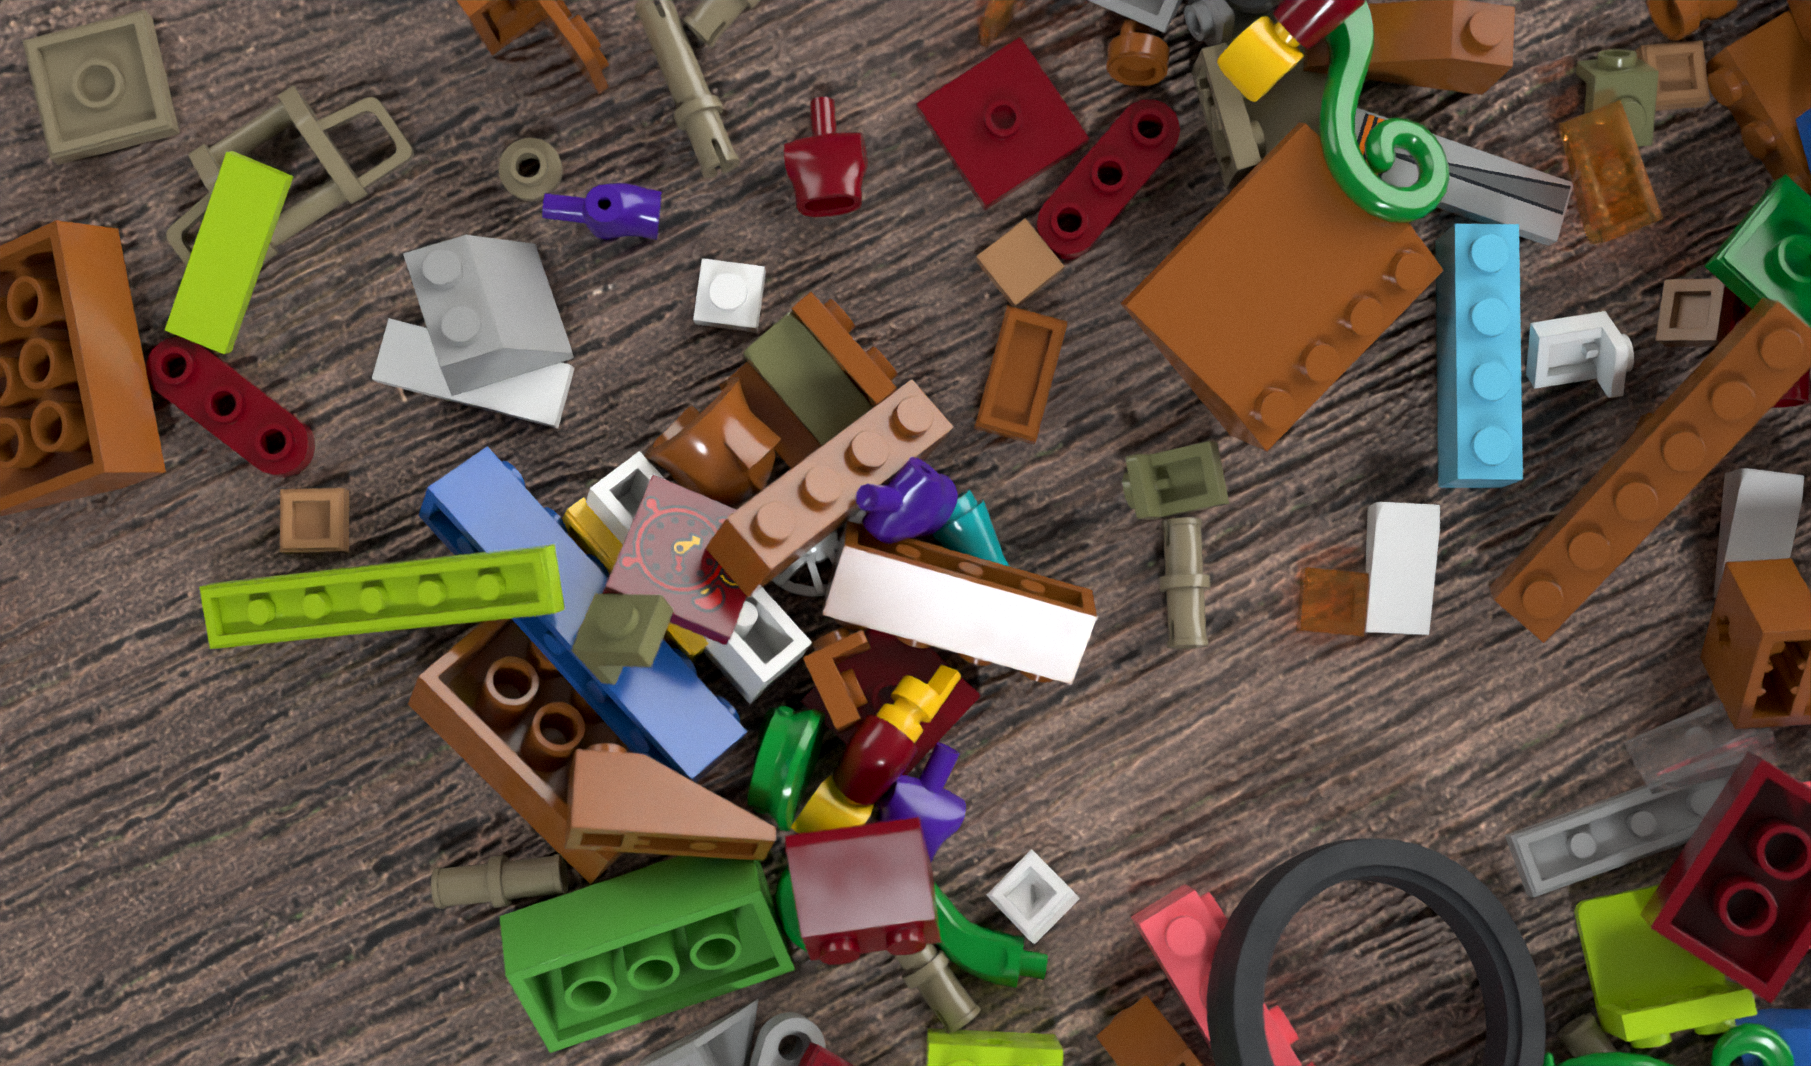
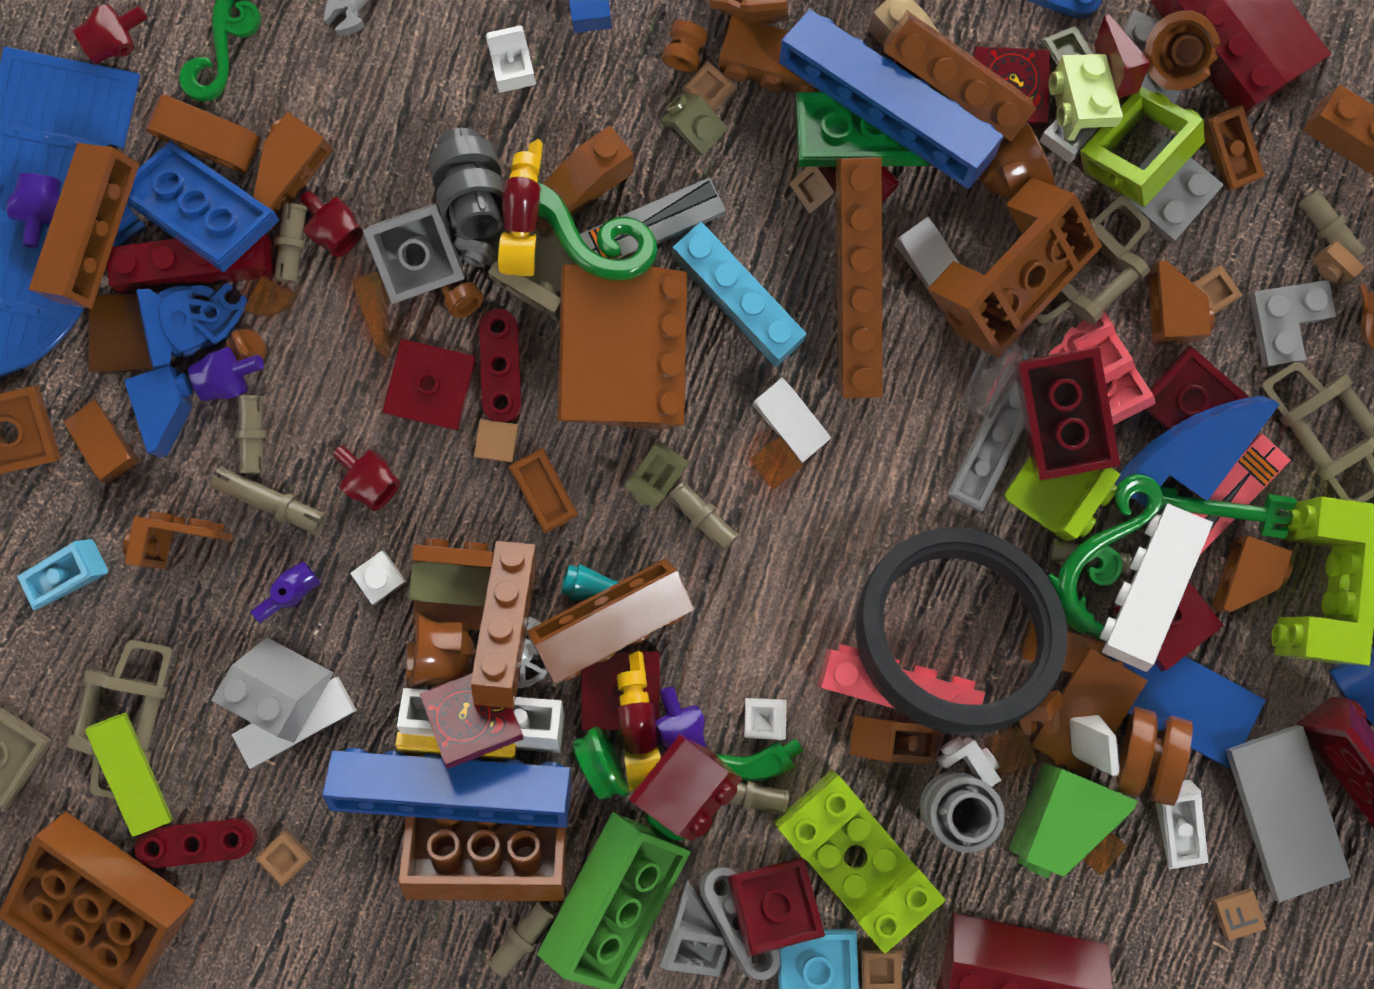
camera: 45 degrees left, 0 degrees up
(383, 597) = (348, 863): lime tile -> none
(532, 187) = (244, 601): dark tan plate -> none
(621, 633) = (471, 778): olive bracket -> none
(644, 807) = (556, 844): slope -> none
(838, 690) = (594, 710): dark orange bracket -> none
(910, 505) = (547, 598): dark purple piece -> none
(1579, 351) = (779, 251): white bracket -> none
(1608, 174) = (720, 160): clear orange slope -> none

